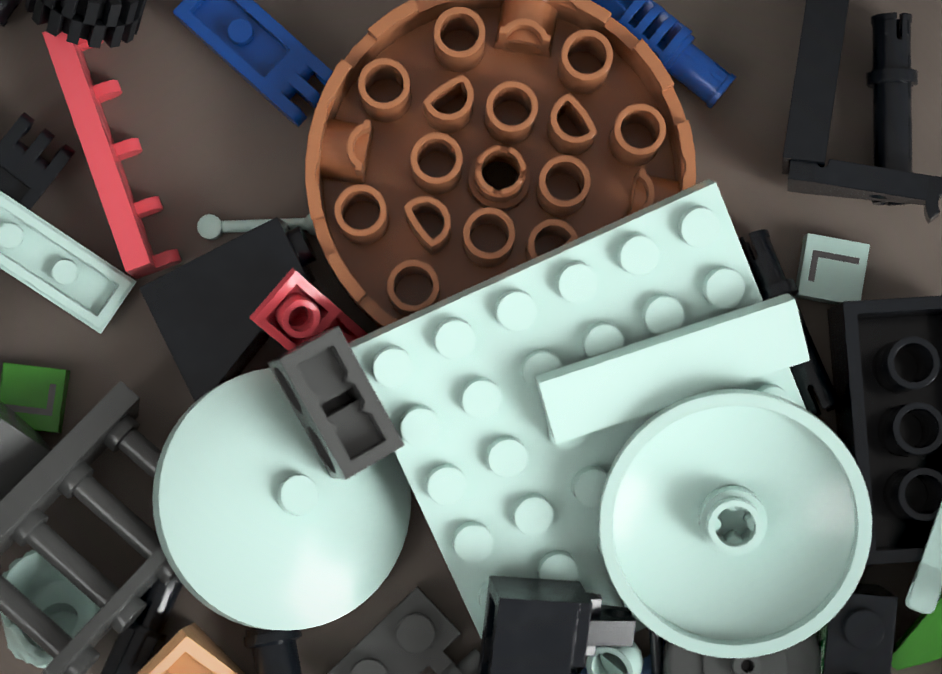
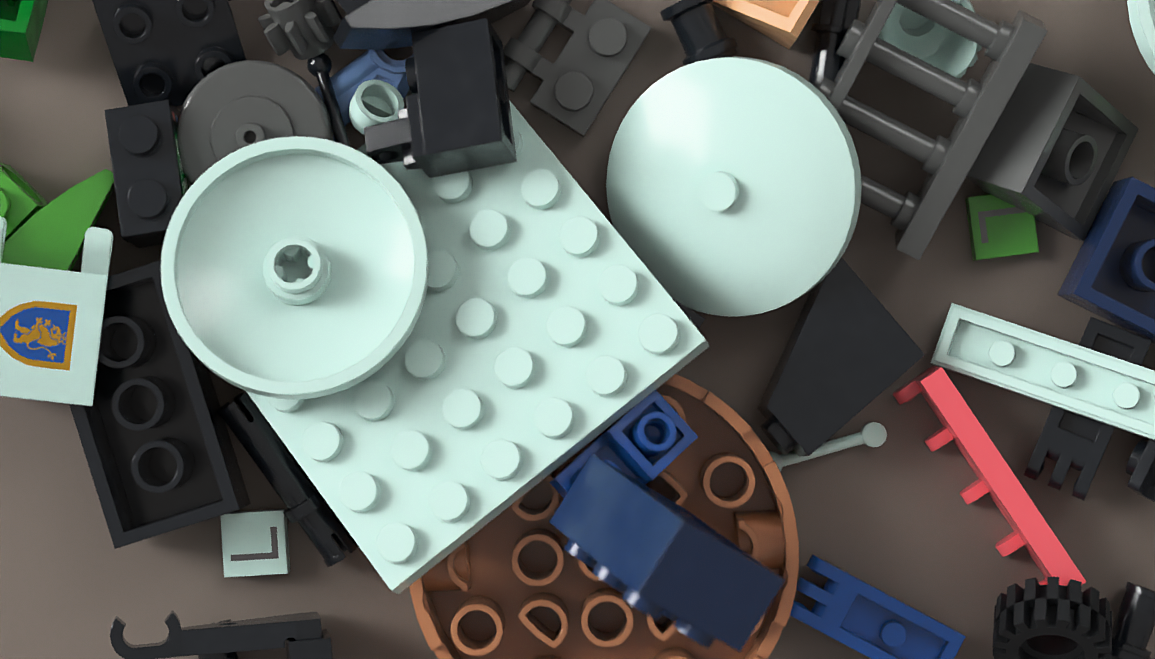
camera: 170 degrees right, 5 degrees up
(299, 312) = (749, 358): coral slope -> none
(336, 404) = (704, 286): dark grey brick -> none
(441, 143) = (664, 557): none -> dark blue brick
(457, 255) = (636, 444): none -> blue slope
(672, 367) = (389, 401): light aqua tile -> none

